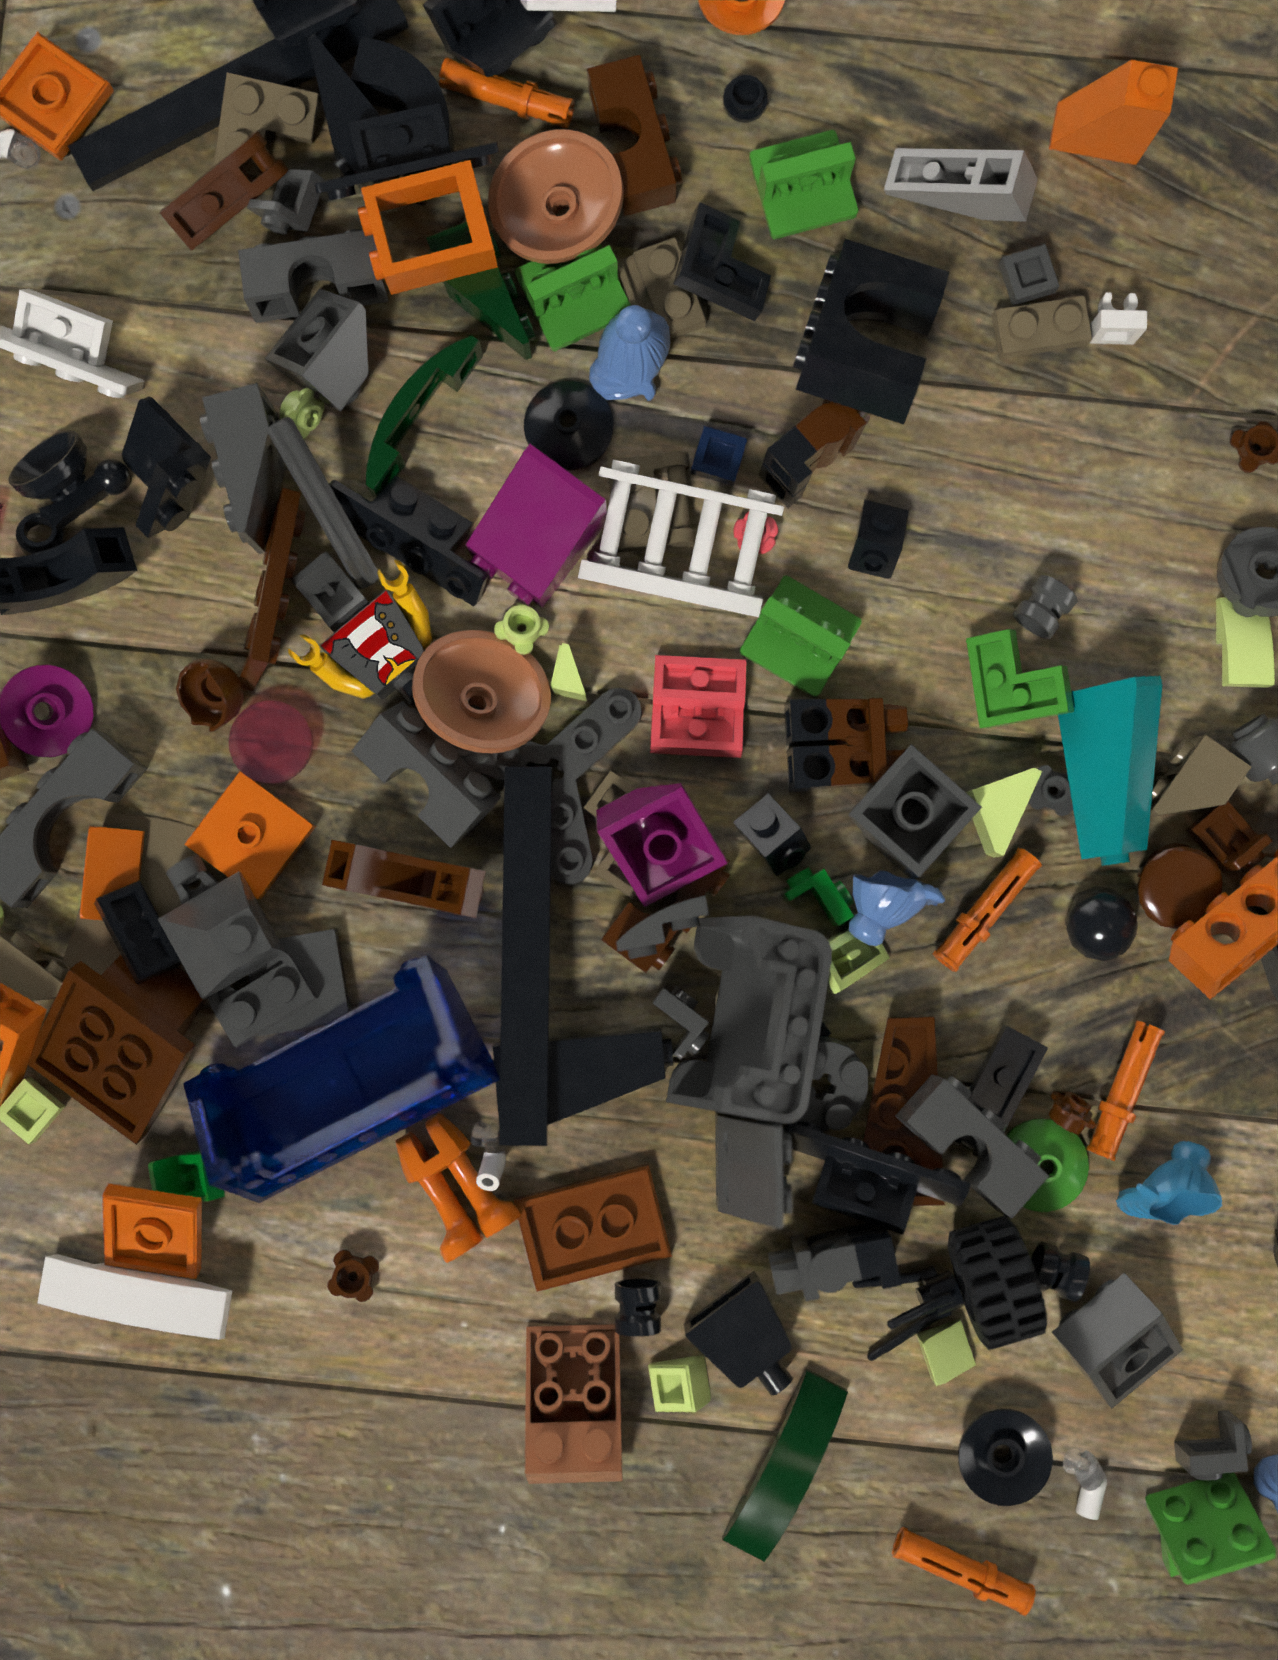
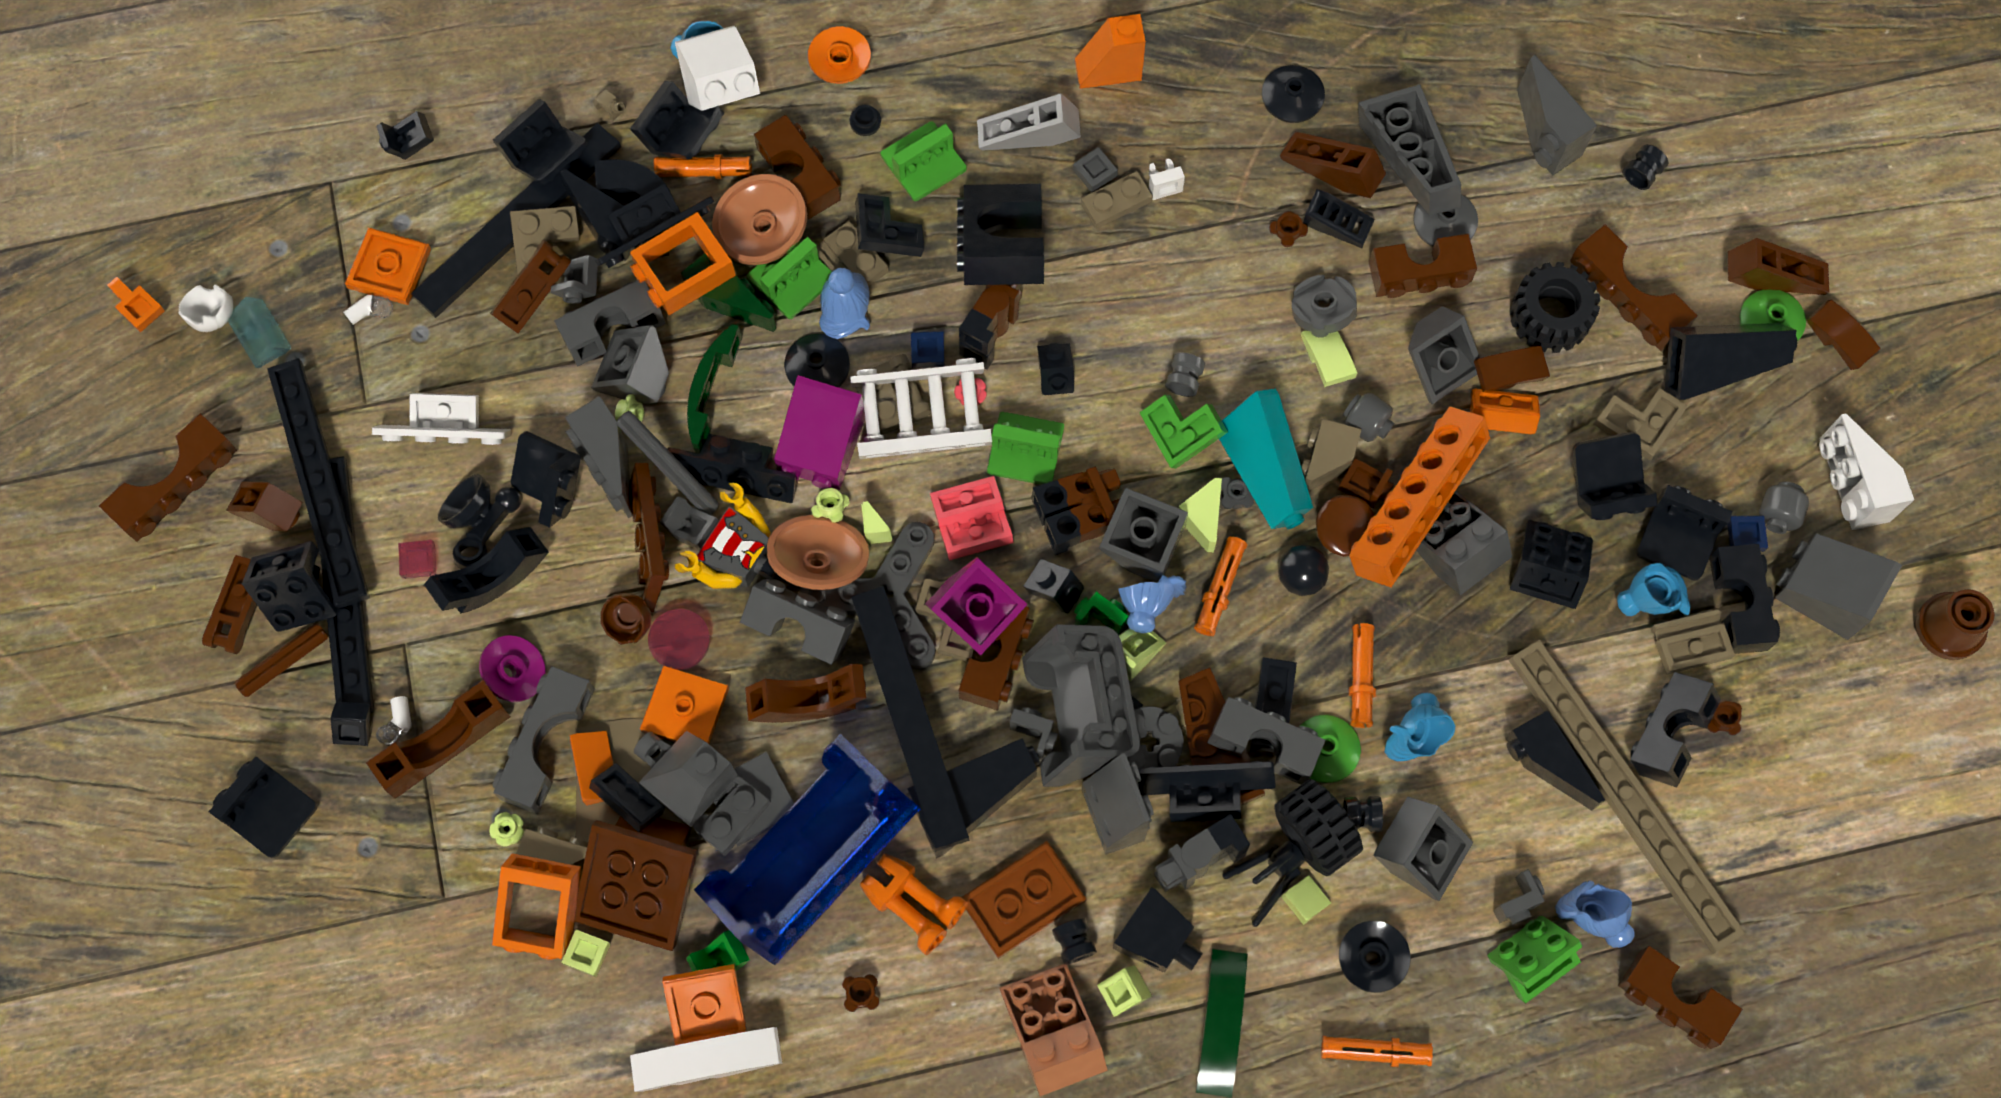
camera: 15 degrees left, 15 degrees down
(494, 1155) = (934, 872): arm -> none
(644, 936) = (989, 670): dark grey slope -> none
(1071, 1112) = (1330, 702): reddish brown plate -> none
(1090, 1477) = (1443, 953): clear arm -> none

